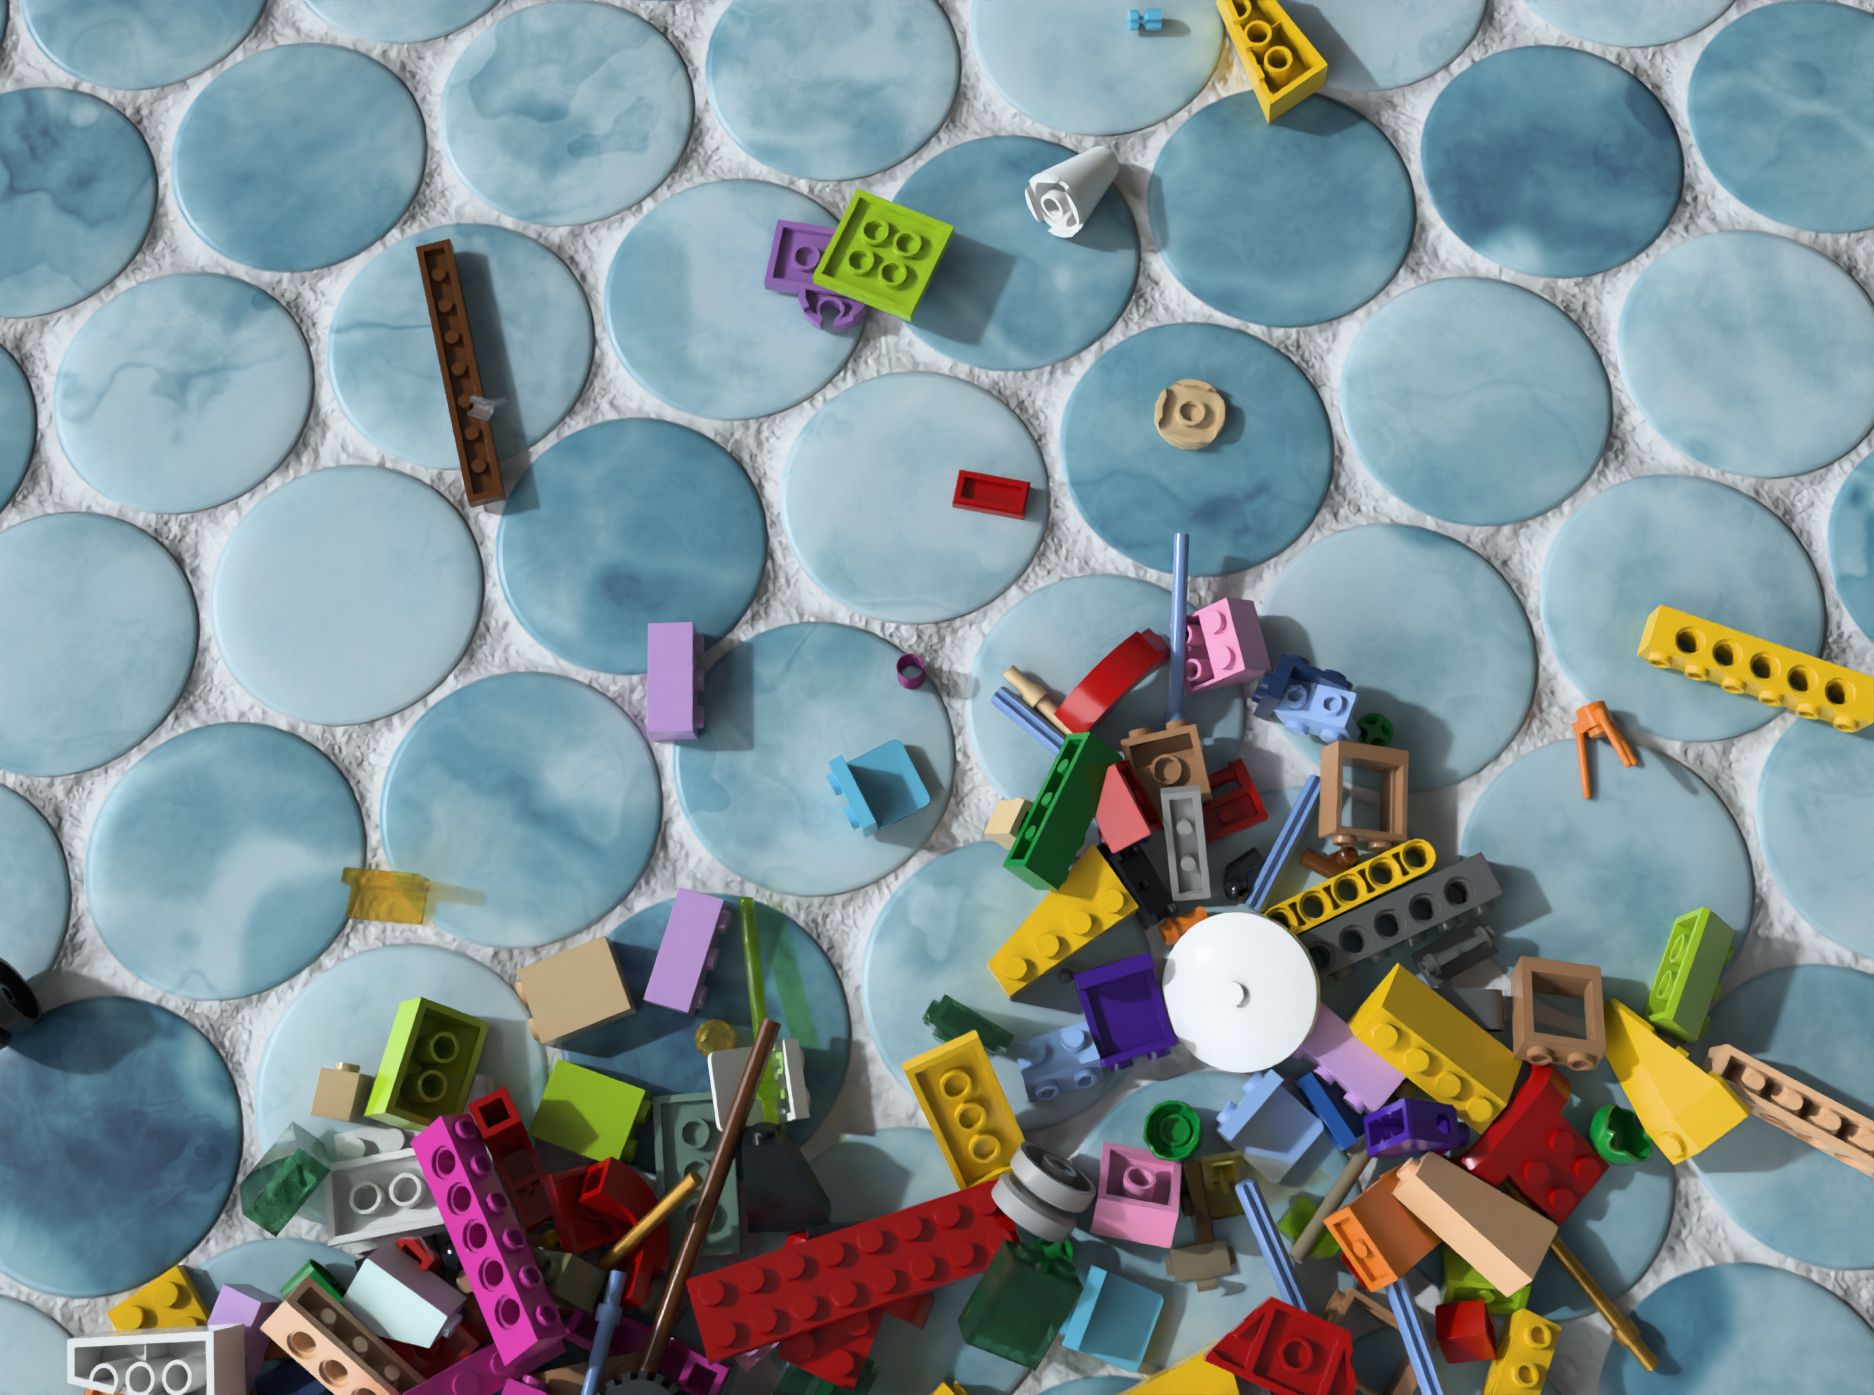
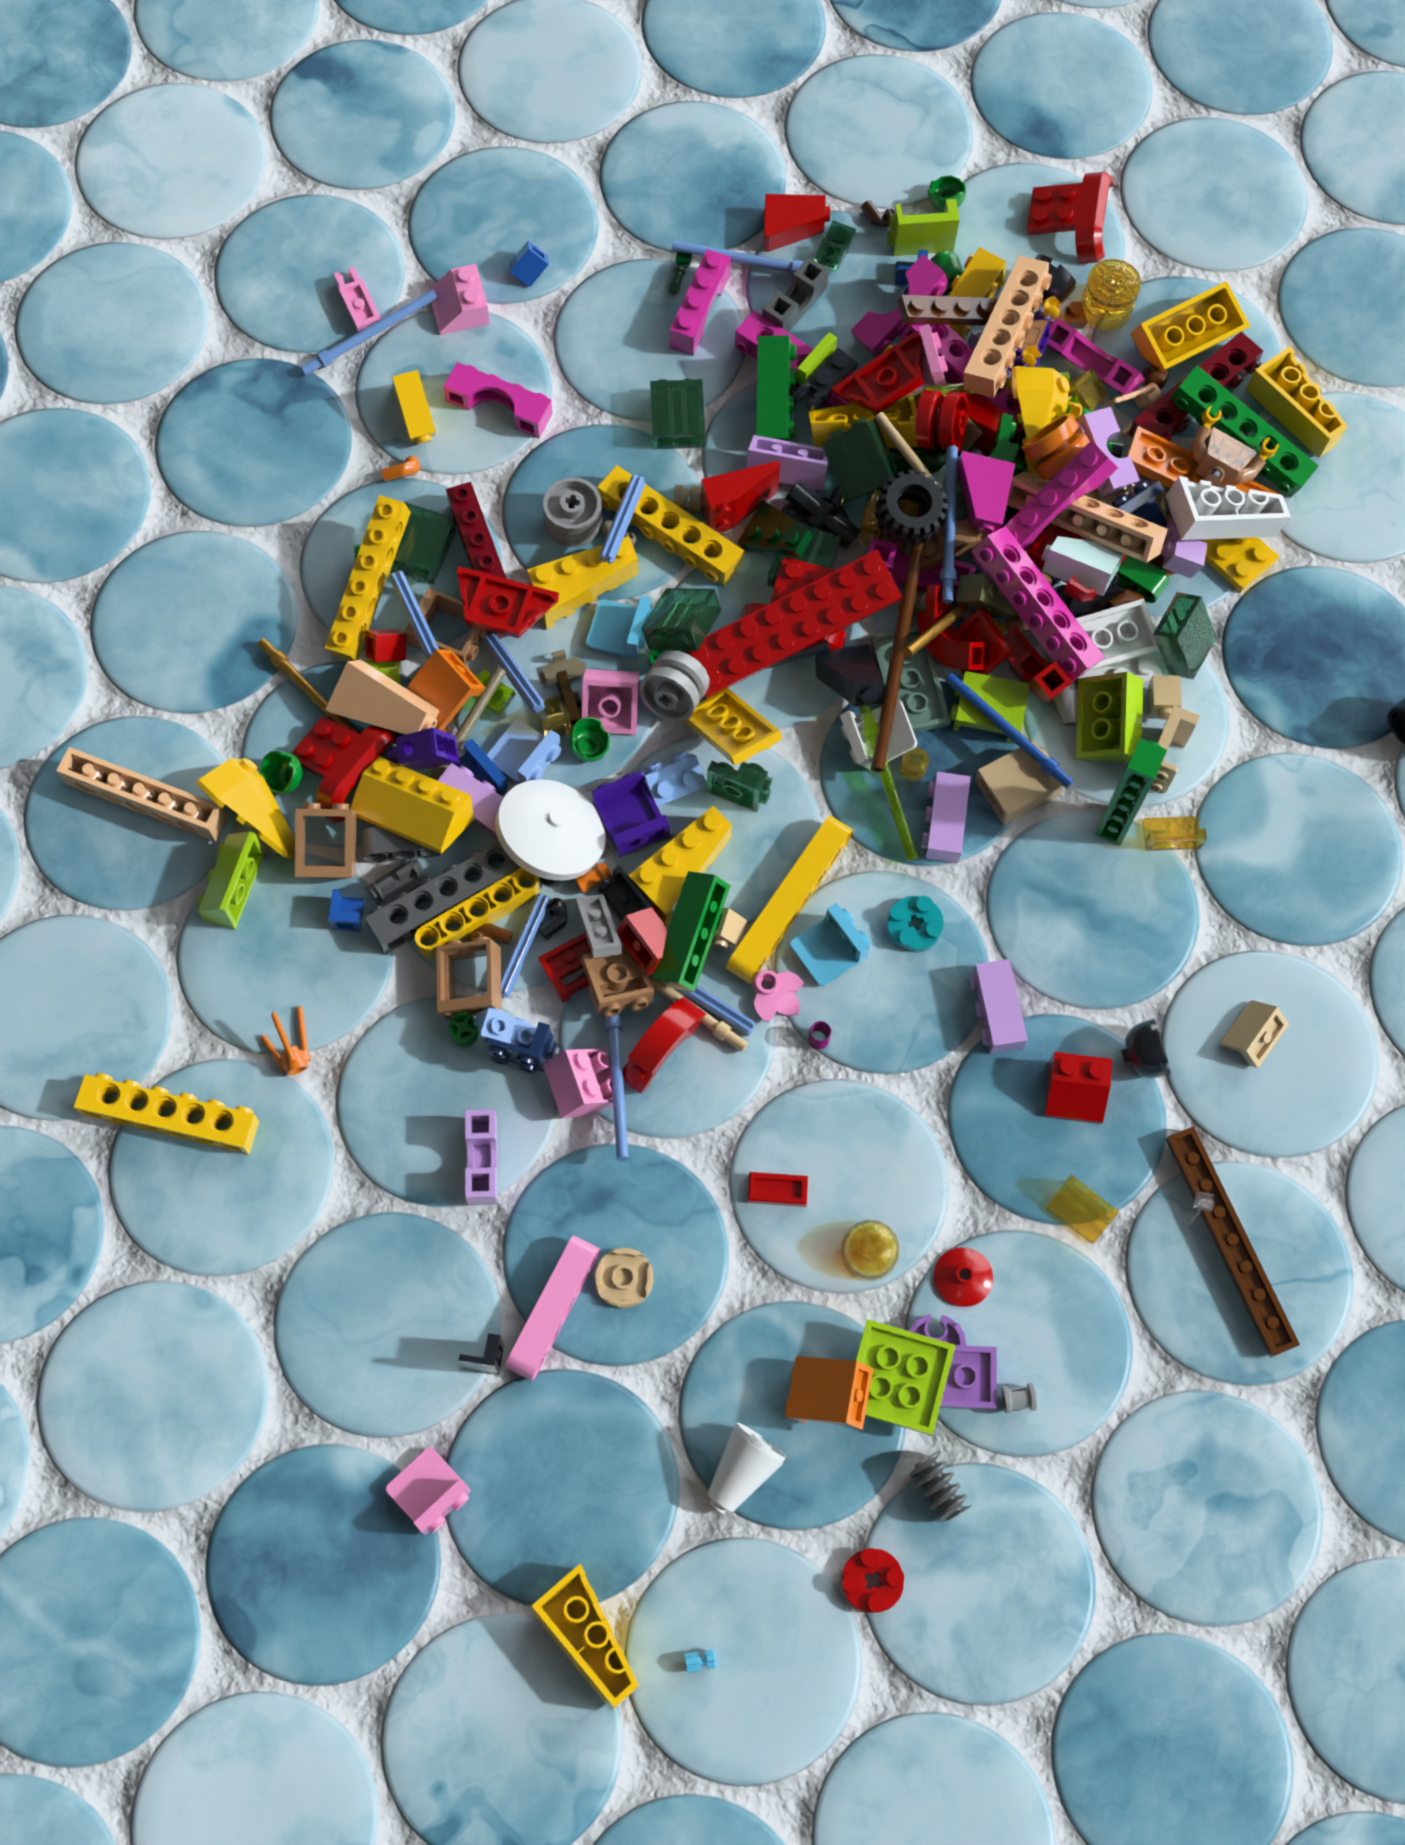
camera: 165 degrees right, 5 degrees down
(345, 1264) = (1124, 597): none -> reddish brown arm
(358, 614) = (1256, 1032): none -> tan panel
(365, 1009) = (1176, 731): none -> tan panel
(426, 904) = (1131, 791): none -> green brick
(501, 598) = (1145, 1050): none -> black cylinder
(531, 996) = (1048, 765): none -> blue bar
(597, 570) = (1078, 1087): none -> red slope
(628, 427) = (1082, 1209): none -> clear yellow panel
(742, 797) = (908, 937): none -> teal plate
(750, 230) = (1018, 1398): none -> light grey bush
(785, 387) = (959, 1291): none -> red dish
(857, 147) = (939, 1488): none -> dark grey piece
(891, 410) = (869, 1250): none -> clear yellow cylinder
(919, 863) = (789, 899): none -> yellow beam
(942, 57) = (854, 1584): none -> red plate
(954, 733) = (779, 997): none -> bright pink plate
(969, 242) = (829, 1391): none -> orange panel
(1278, 386) = (552, 1308): none -> bright pink beam
(1356, 549) = (482, 1157): none -> lavender arch
(1368, 322) = (492, 1357): none -> black panel
(1431, 205) = (428, 1491): none -> bright pink bracket
(1526, 917) = (345, 912): none -> blue panel

